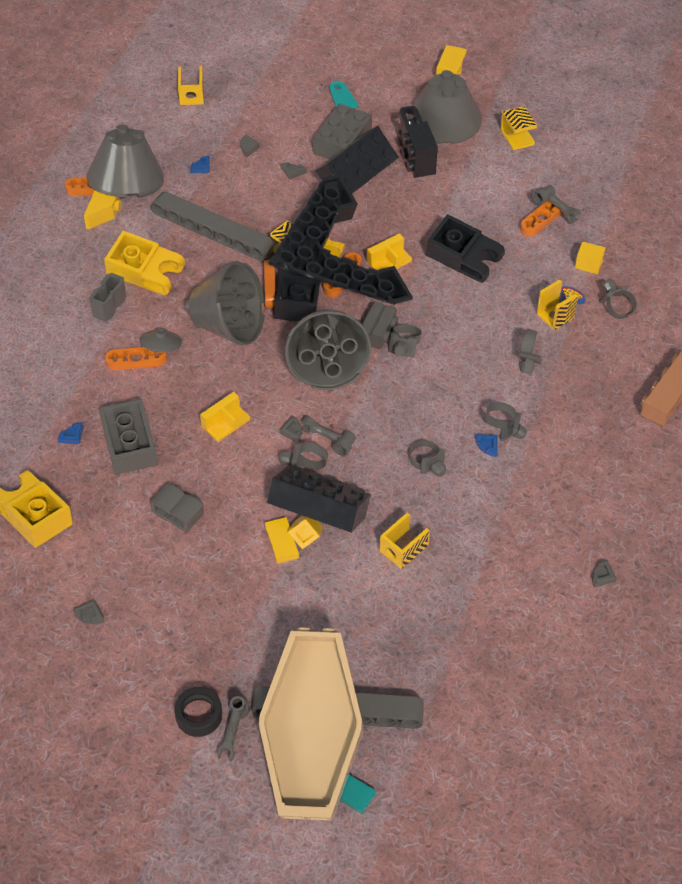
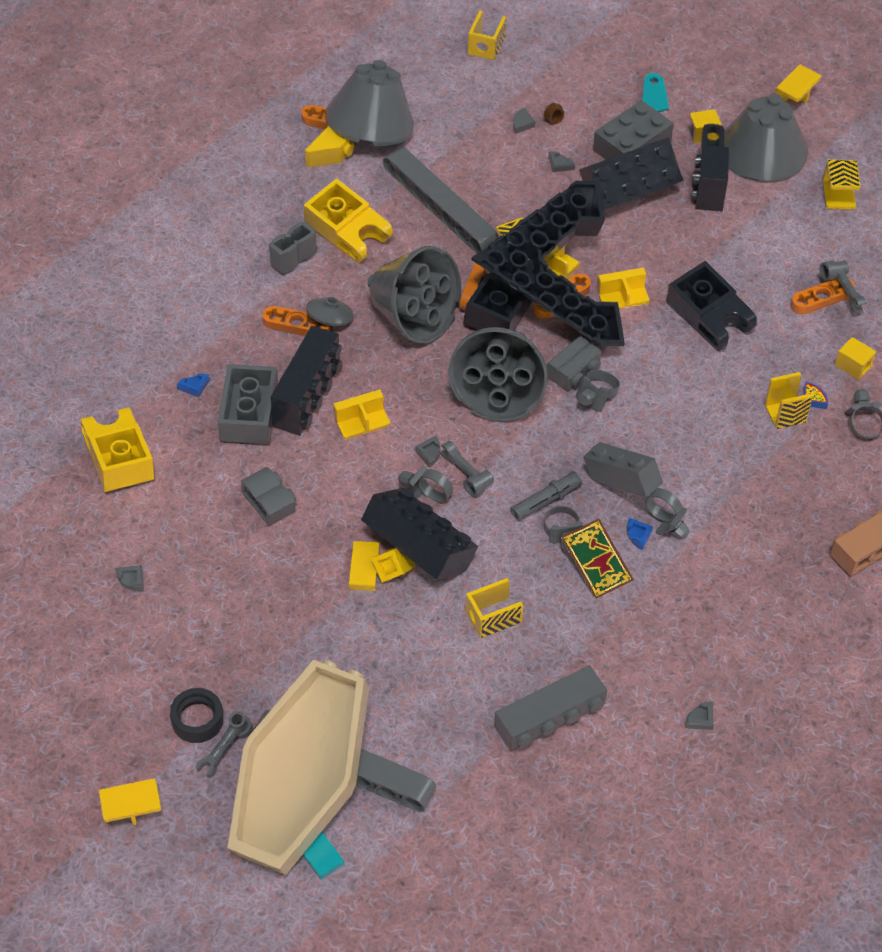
camera: 20 degrees right, 0 degrees up
(169, 402) = (306, 381): none -> black brick
(175, 805) = (130, 800): none -> yellow panel
(201, 165) = (460, 130): blue tile -> none
(271, 133) = (554, 113): none -> reddish brown plate
(392, 109) = (701, 118): none -> yellow panel
(407, 431) = (555, 490): none -> dark grey pin
(458, 396) = (623, 469): none -> dark grey brick
(466, 474) = (597, 558): none -> sticker
(486, 607) = (550, 708): none -> dark grey brick
(526, 352) = (729, 442): dark grey piece -> none

